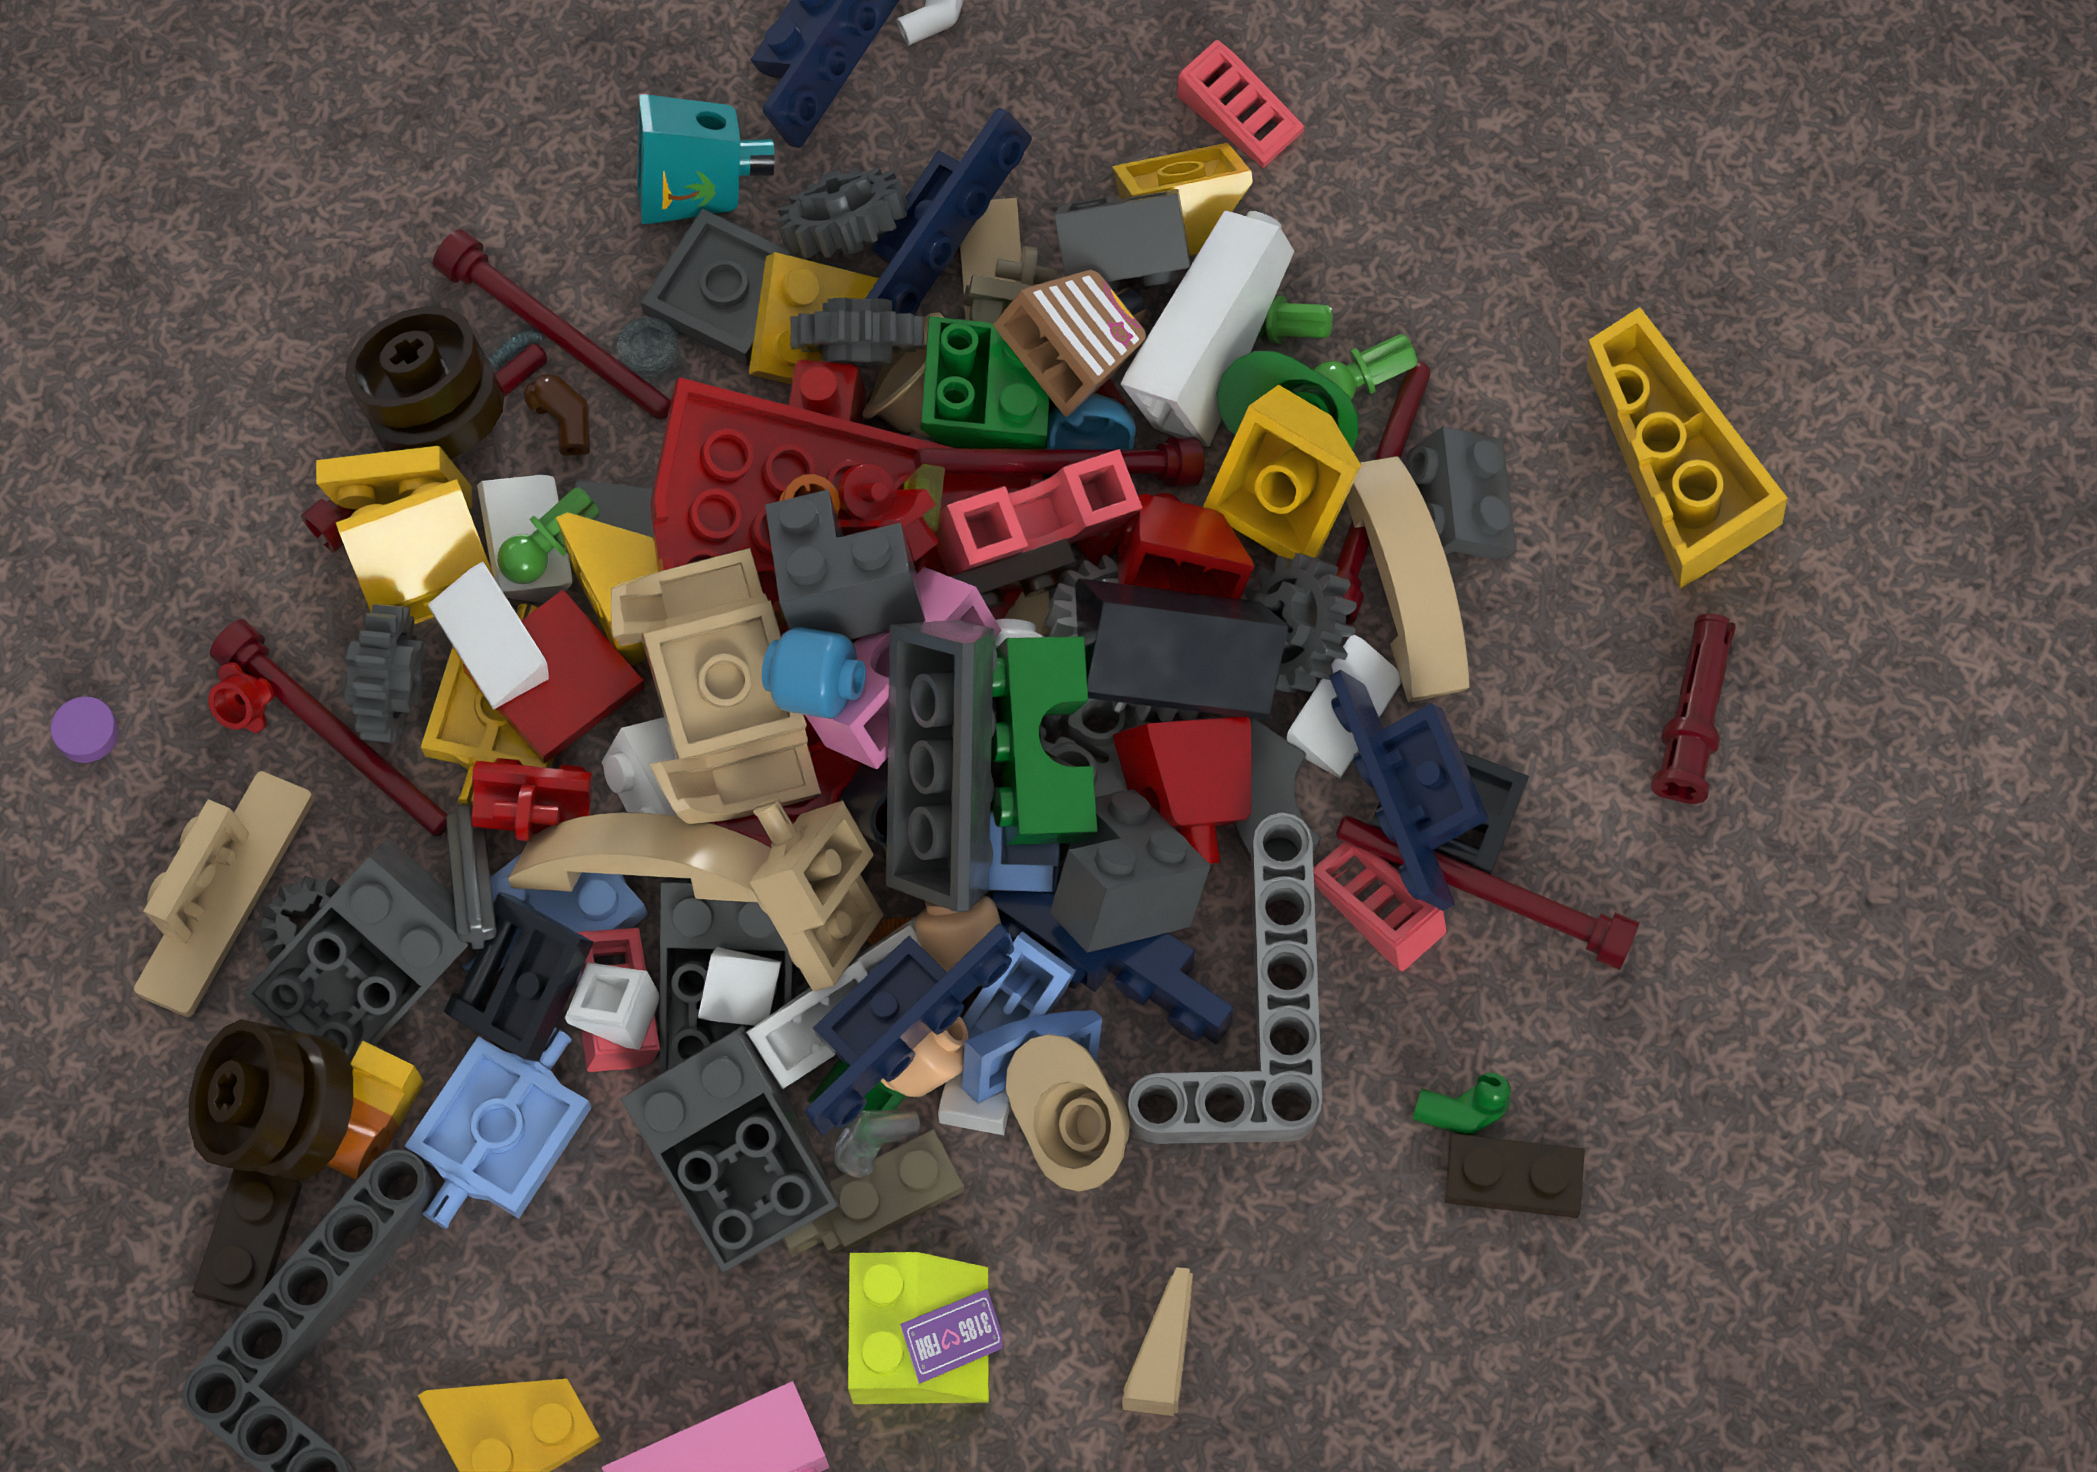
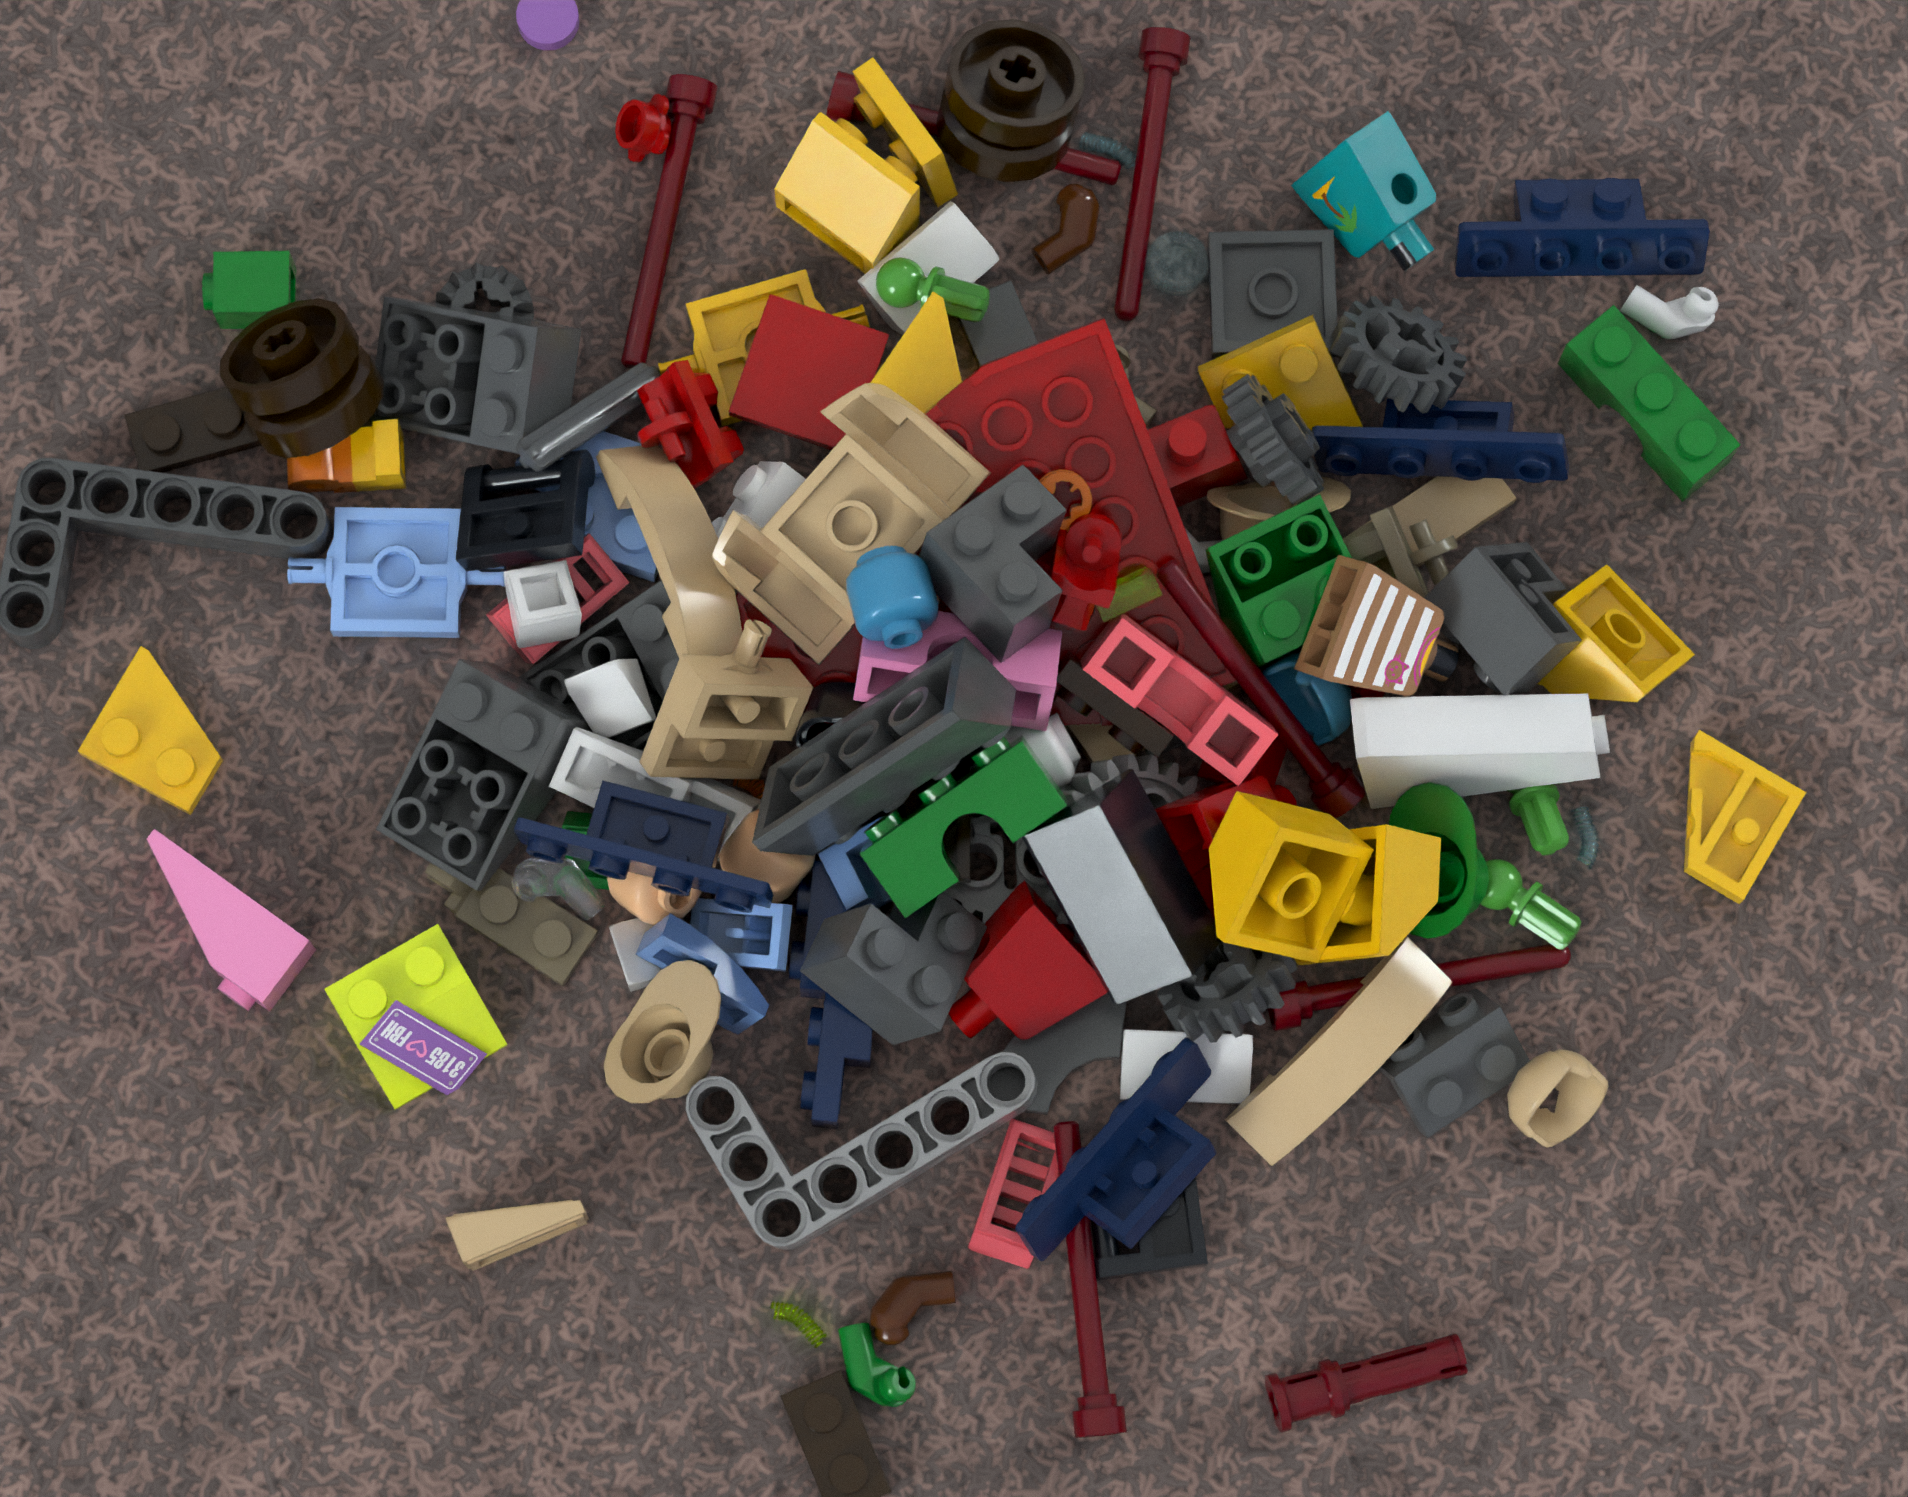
camera: 55 degrees right, 10 degrees up
(150, 1112) = (248, 286): none -> green brick
(215, 886) = (470, 215): tan bracket -> none
(384, 673) = (725, 234): dark grey gear -> none
(489, 636) = (801, 301): white slope -> none
(965, 56) = (1674, 426): none -> green arch
(1207, 103) = (1748, 591): coral slope -> none
(1241, 513) = (1282, 876): none -> yellow slope
(1340, 307) = (1585, 840): none -> clear light blue leg
(1381, 181) = (1732, 816): none -> yellow wing
(1384, 1152) = (782, 1316): none -> clear neon green leg
(1418, 1048) = (904, 1298): none -> reddish brown arm
(1538, 431) = (1579, 1096): none -> tan hair
(1680, 451) = (1604, 1232): yellow wedge -> none

